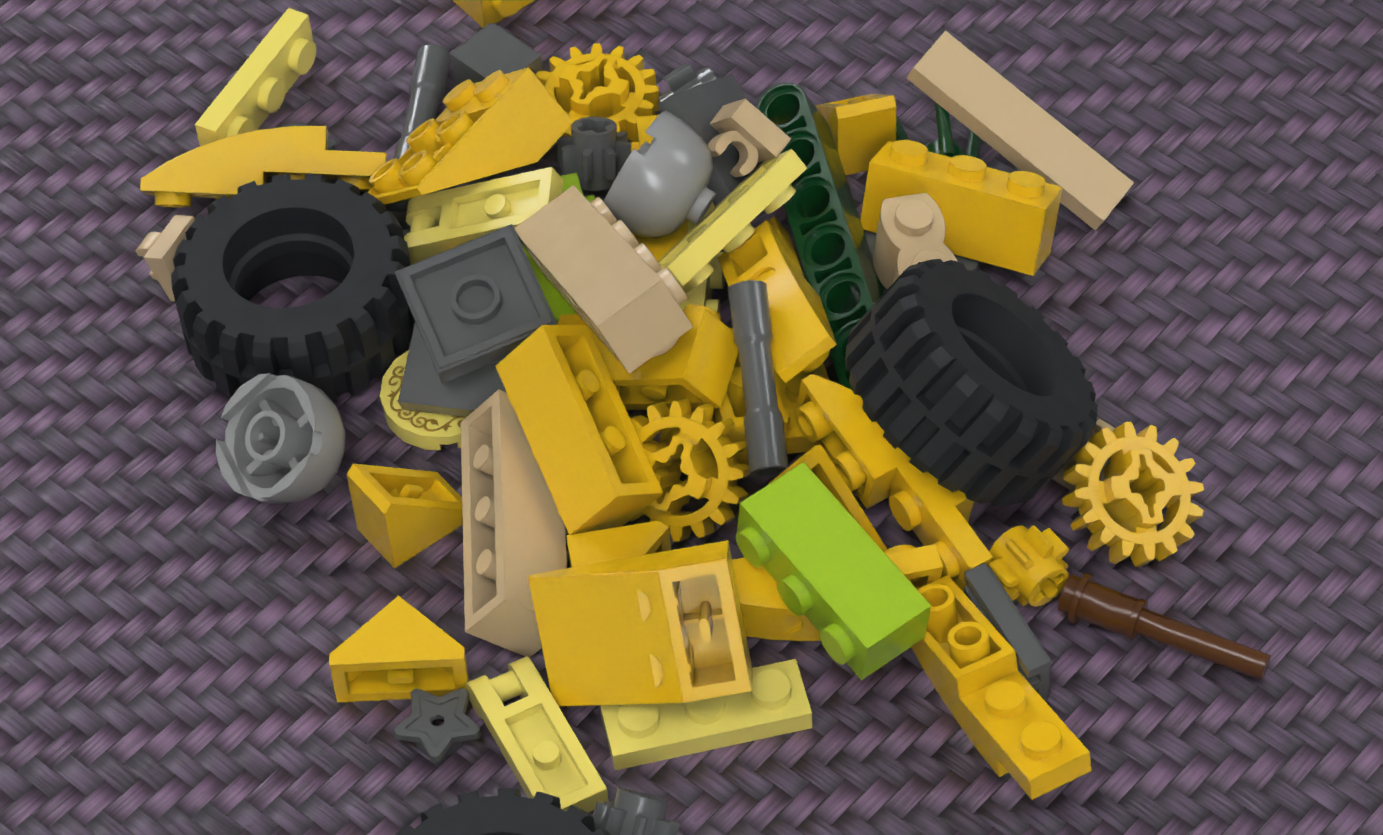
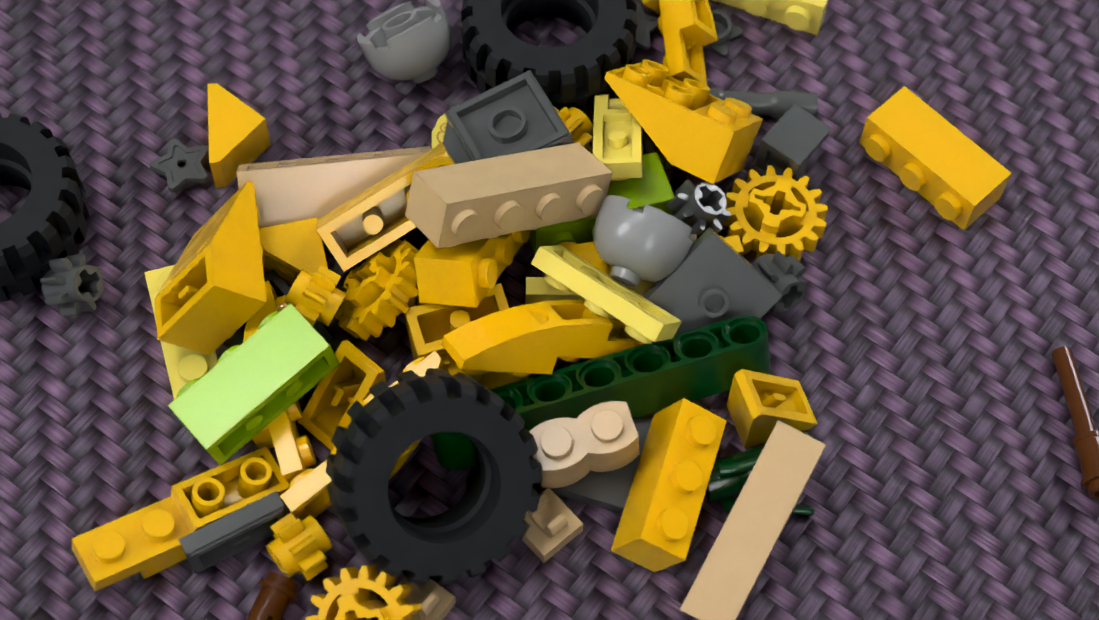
camera: 80 degrees right, 10 degrees up
(402, 509) = (359, 118): yellow slope -> none
(536, 737) = (156, 224): light yellow plate -> none
(699, 516) = (316, 295): none -> yellow gear
(749, 132) = (691, 297): tan tile -> none
(762, 418) = (464, 310): dark grey piece -> none

